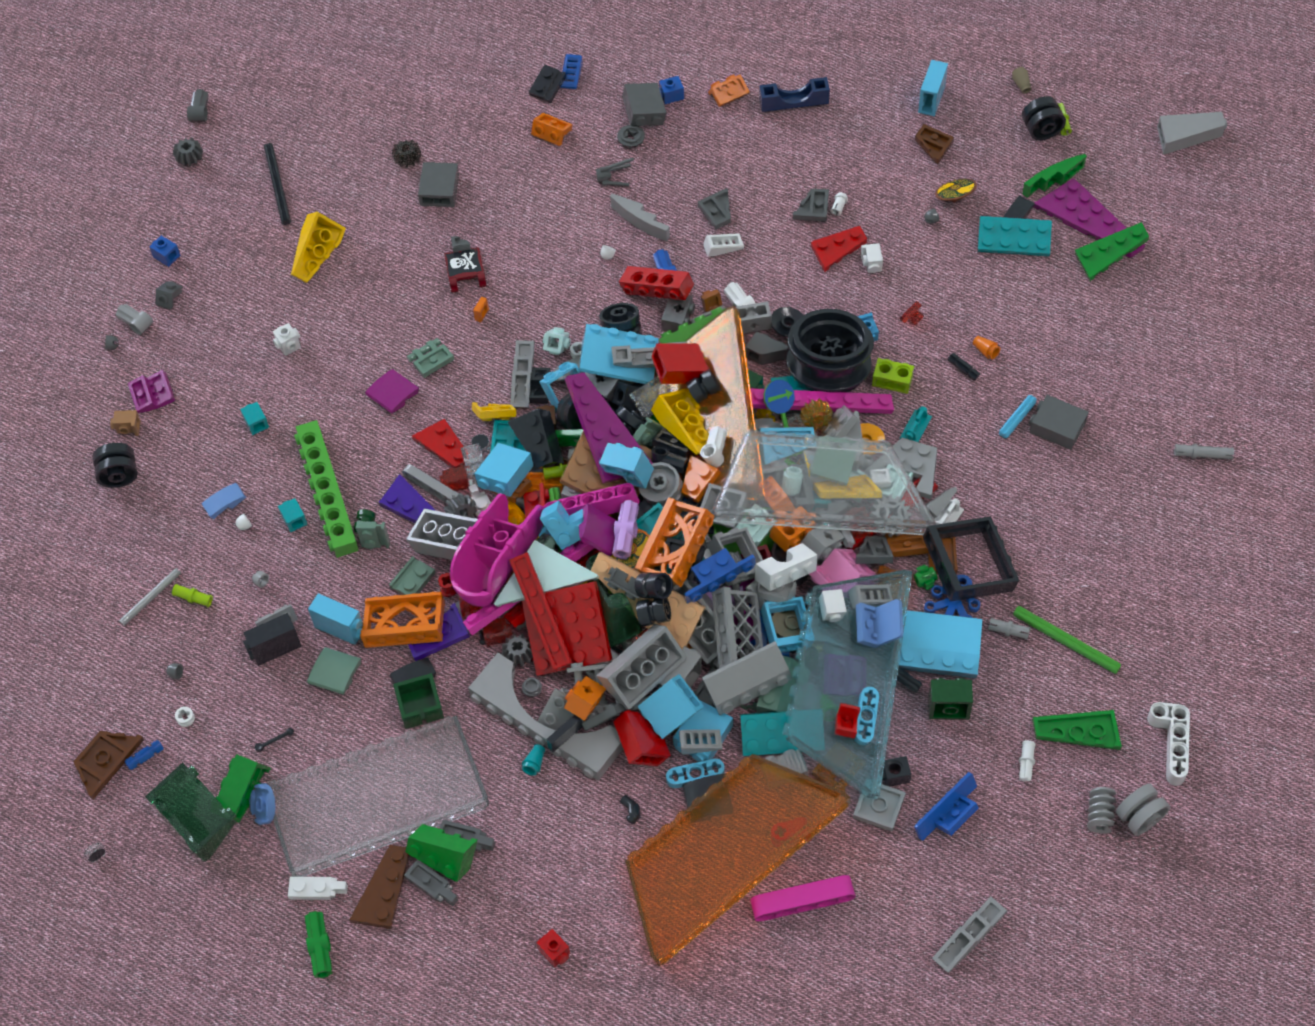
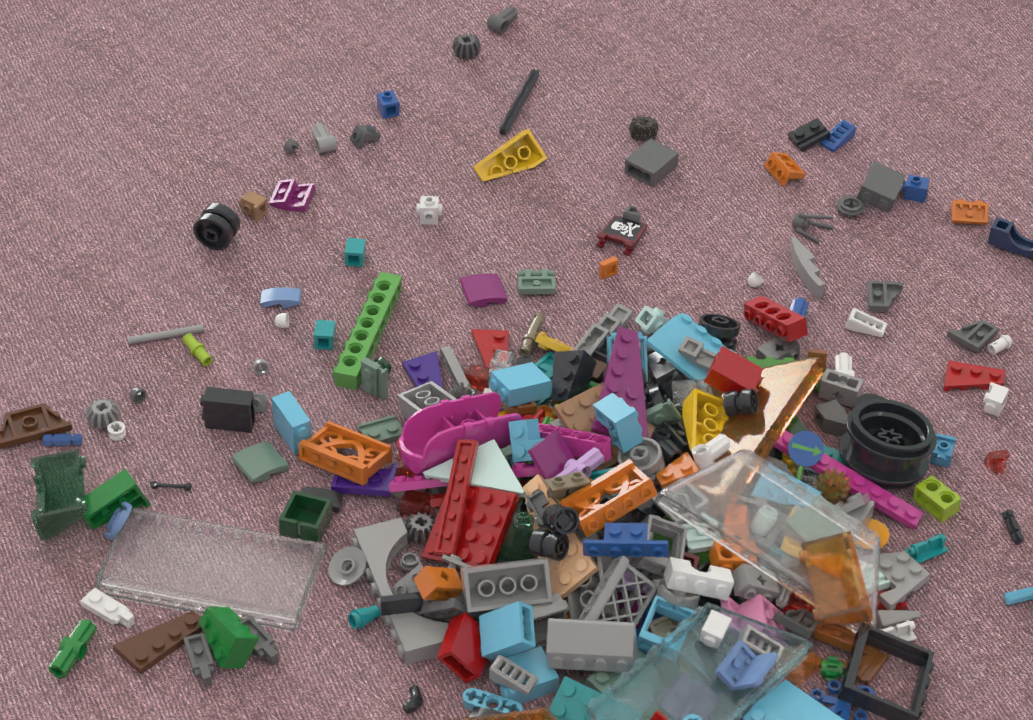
camera: 30 degrees right, 15 degrees down
(163, 701) = (102, 413): none -> light grey gear
(468, 417) = (529, 338): none -> dark tan pin
(477, 723) = (343, 561): none -> light grey dish
(631, 548) = (559, 484): none -> dark tan hinge
(892, 505) = (836, 580): none -> clear orange windscreen

